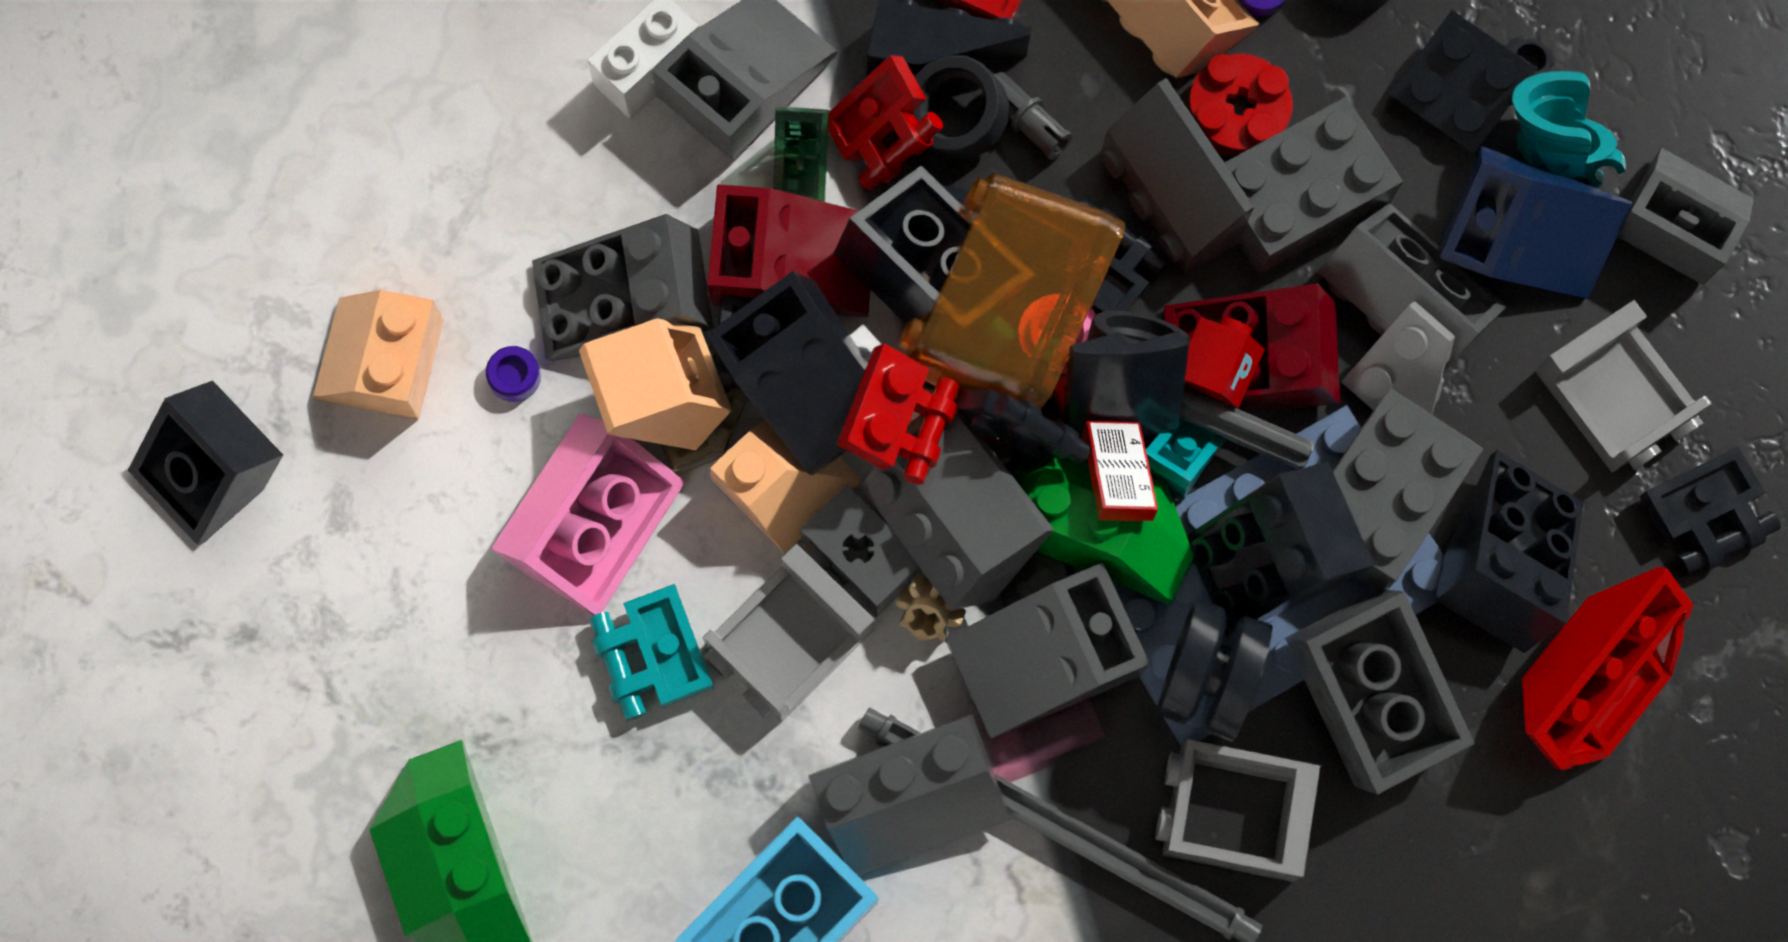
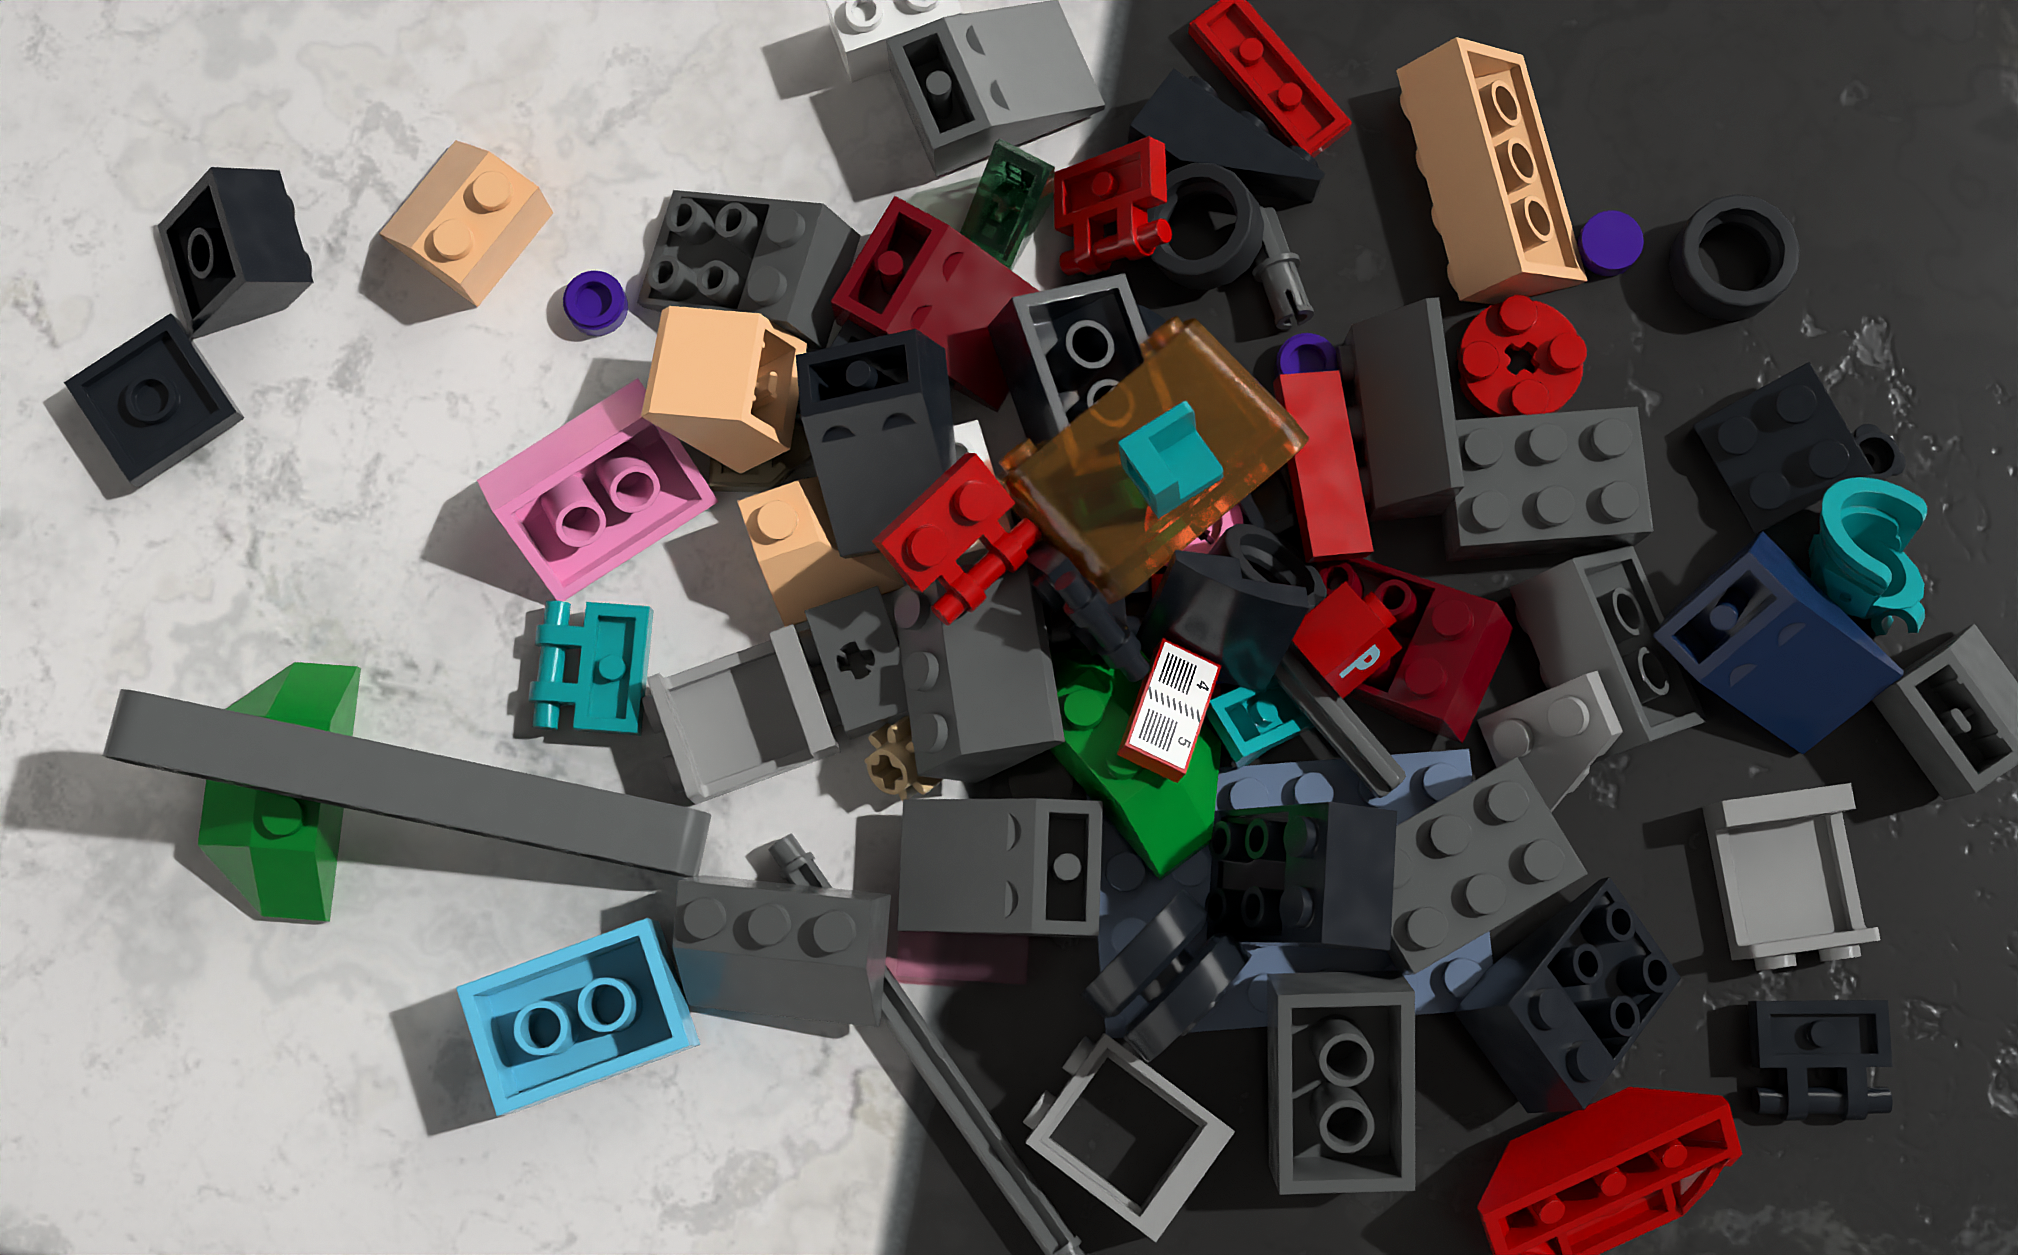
camera: 30 degrees right, 5 degrees up
(195, 606) = (154, 400): none -> black plate
(555, 803) = (405, 784): none -> dark grey beam
(1033, 282) = (1169, 460): none -> teal panel
(1083, 177) = (1305, 354): none -> dark purple tile
(1144, 250) = (1325, 469): none -> red tile

